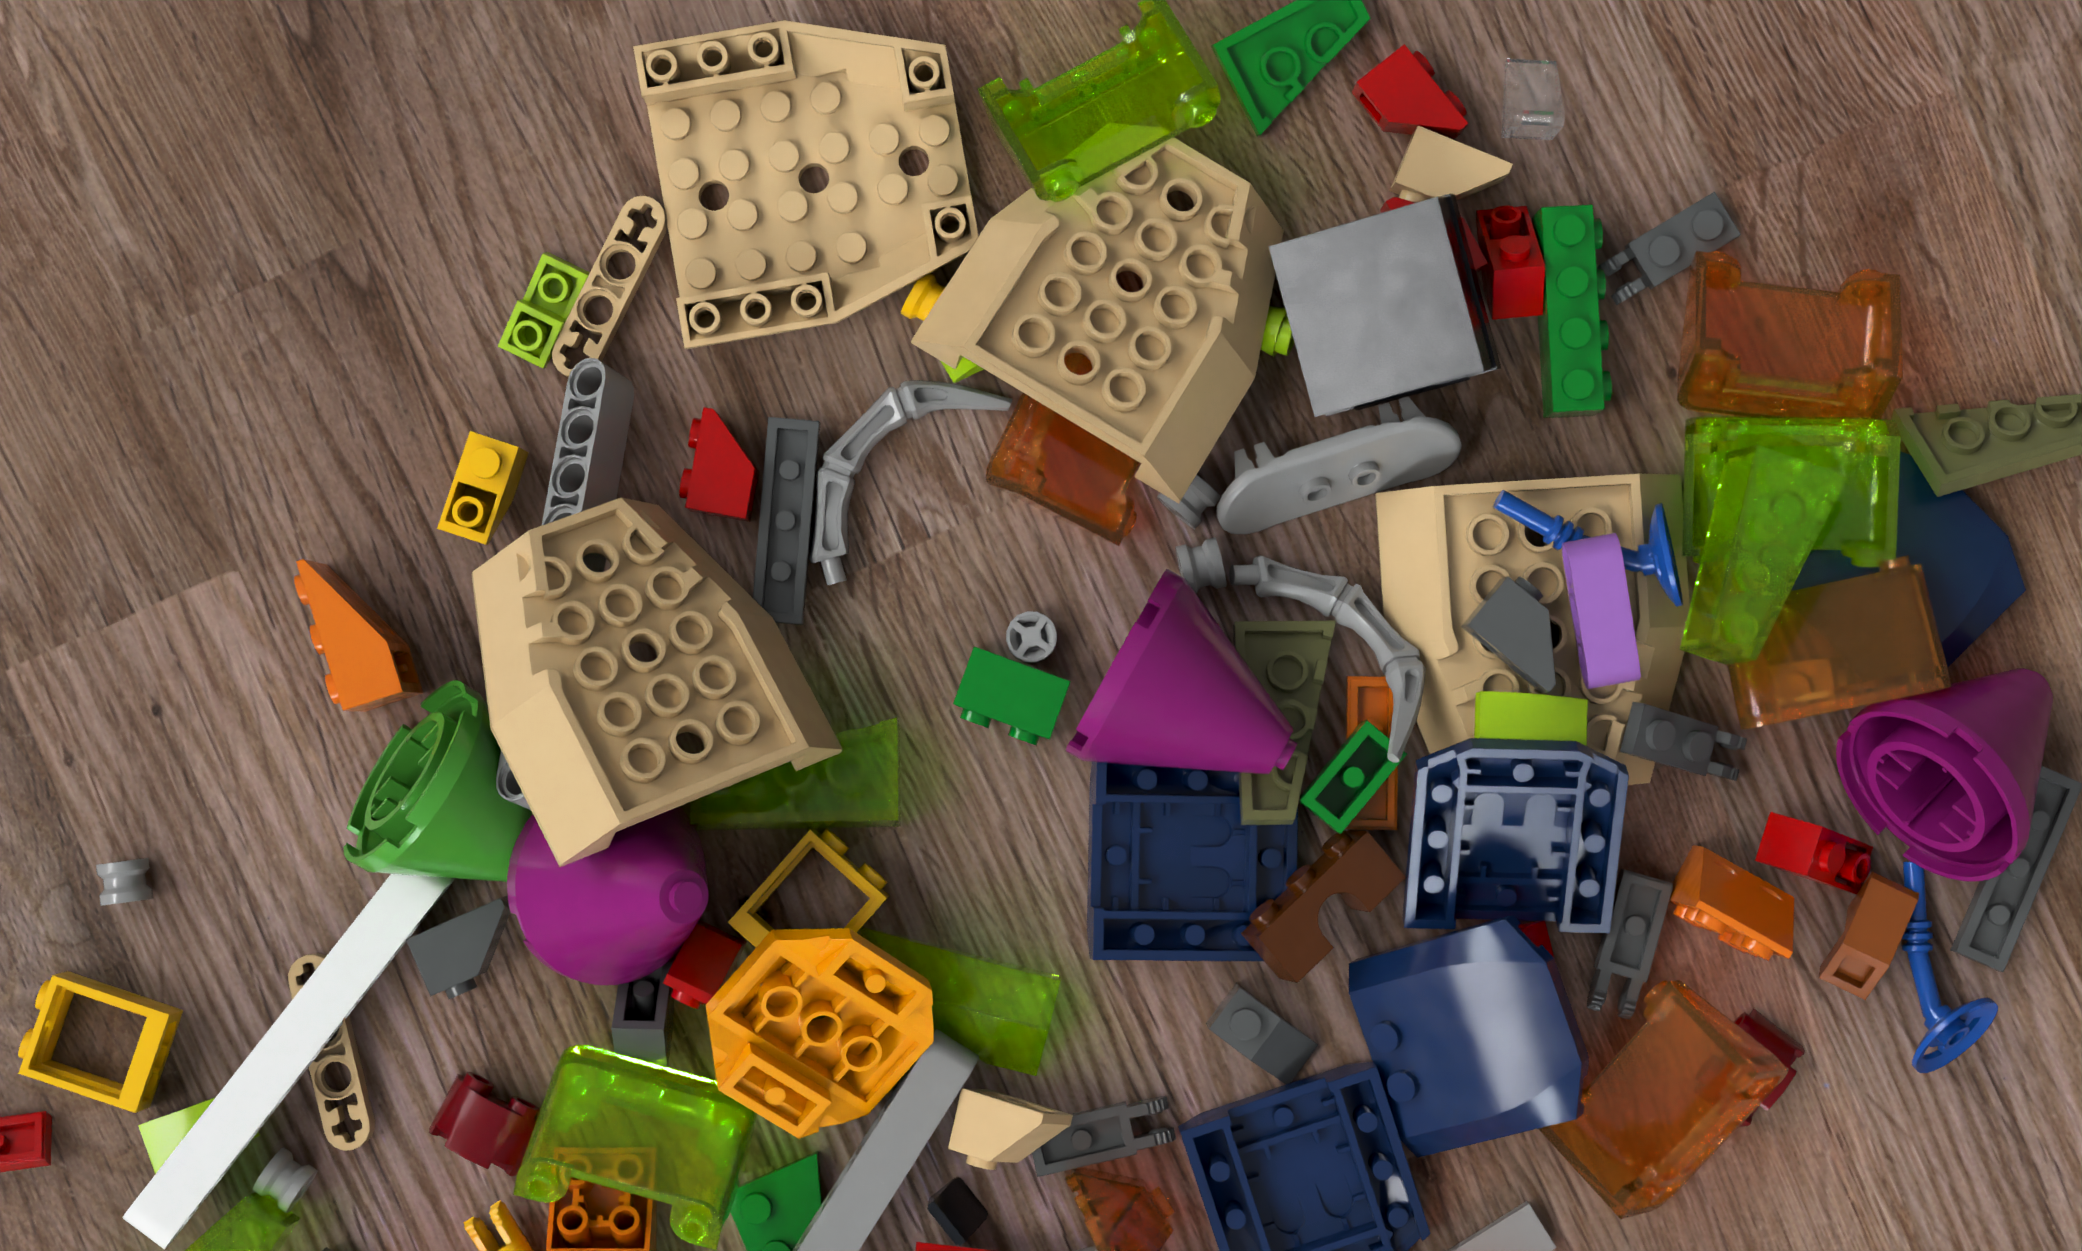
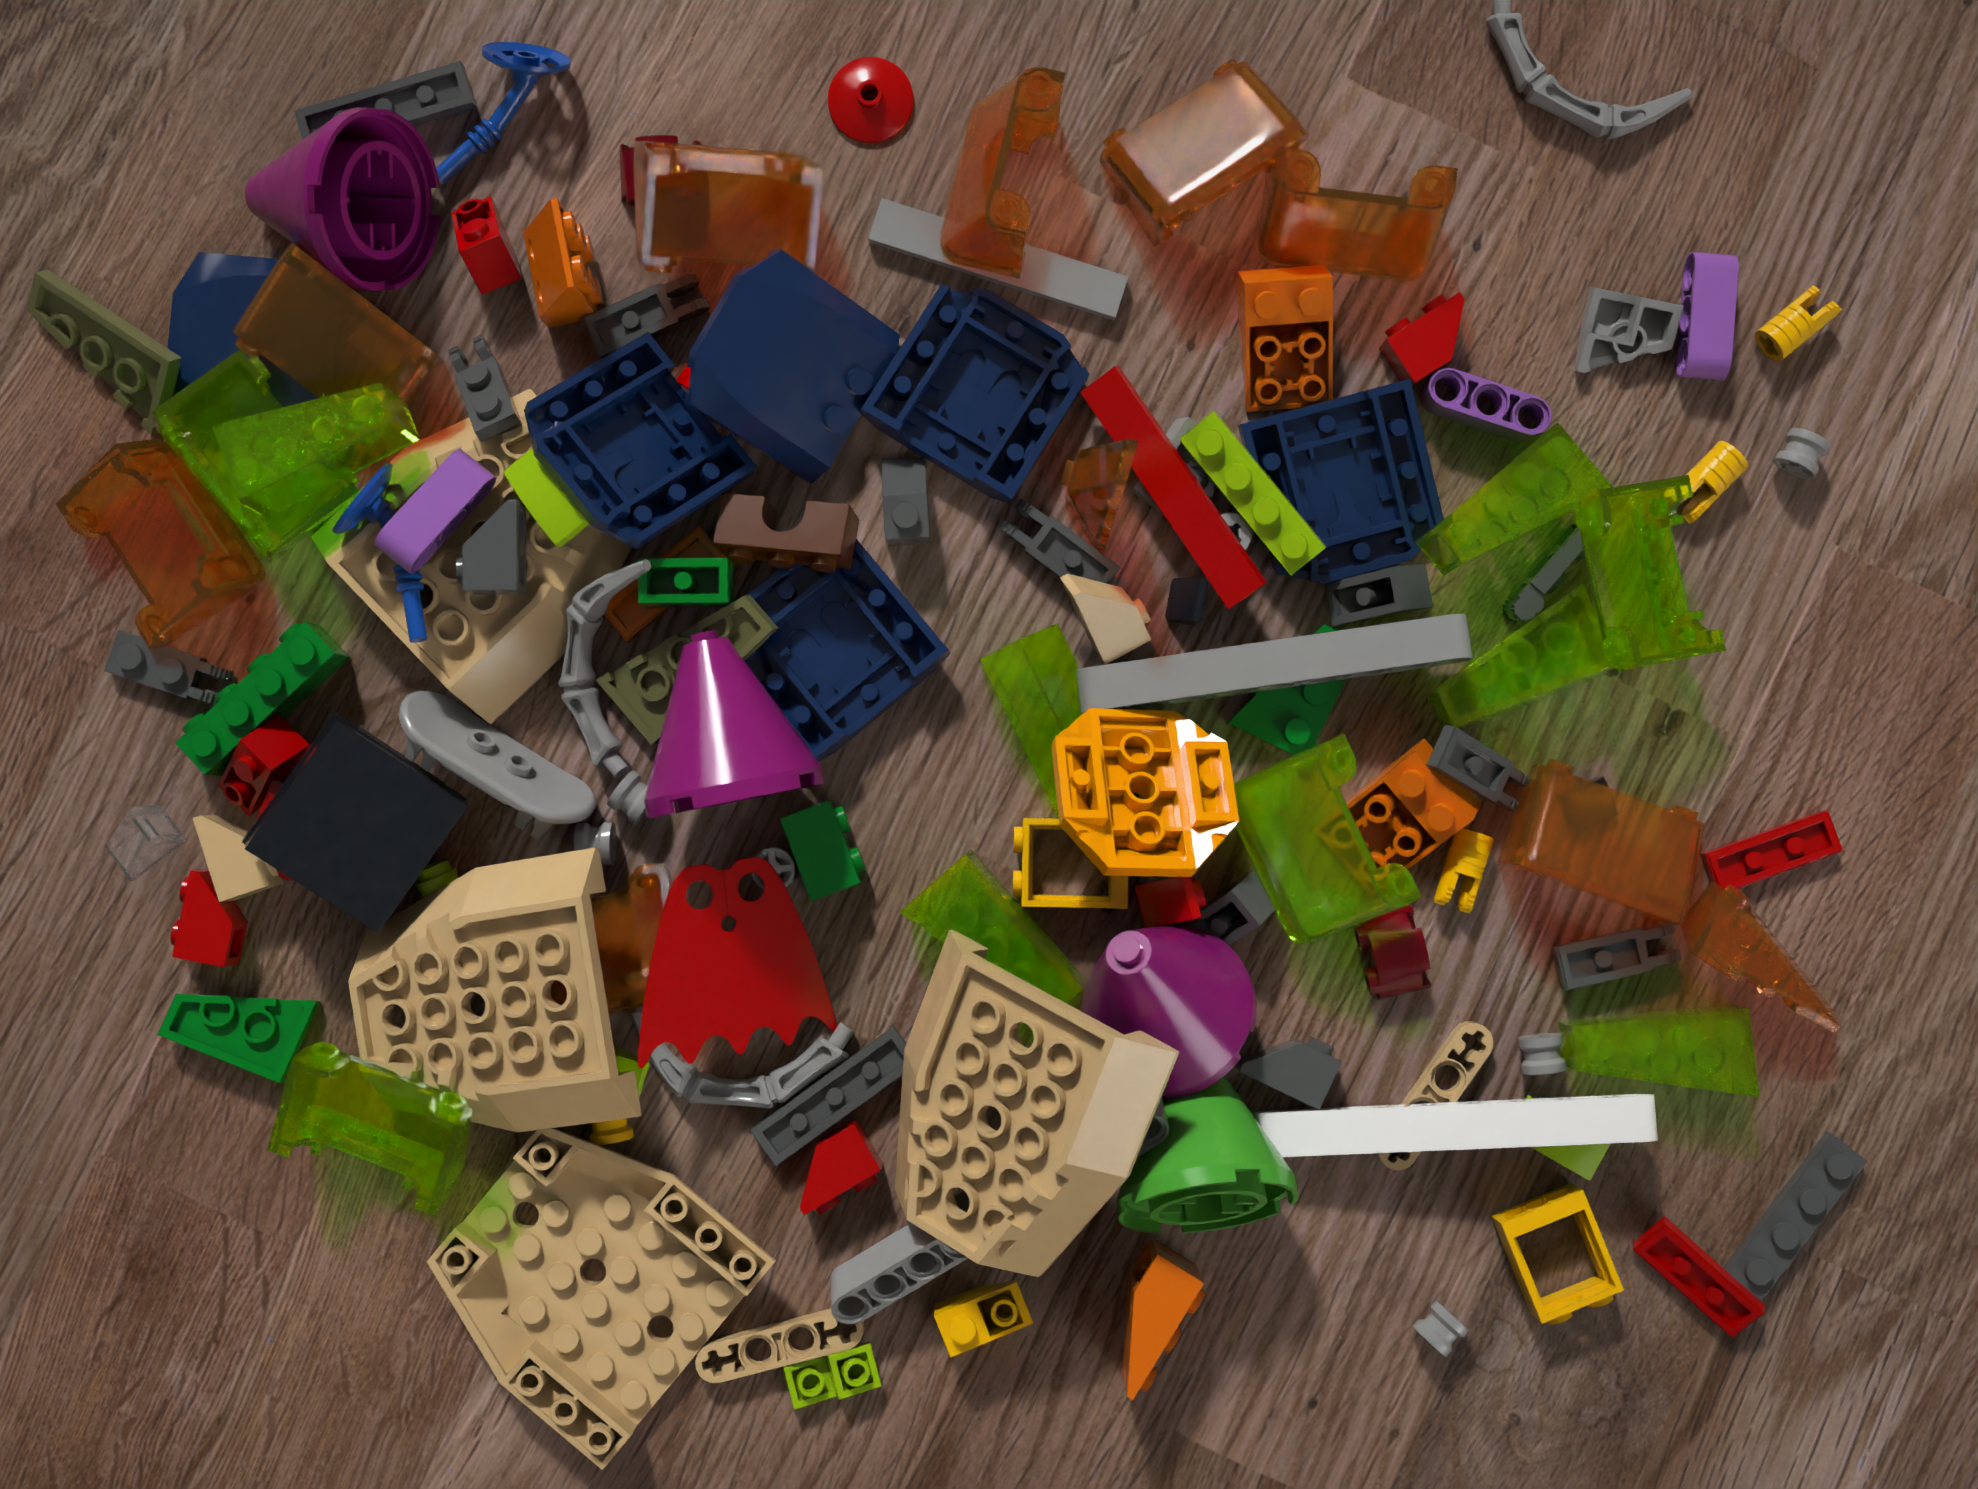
camera: 130 degrees left, 0 degrees up
(962, 520) = (730, 981): none -> red piece
(1870, 937) = (504, 164): dark orange slope -> none

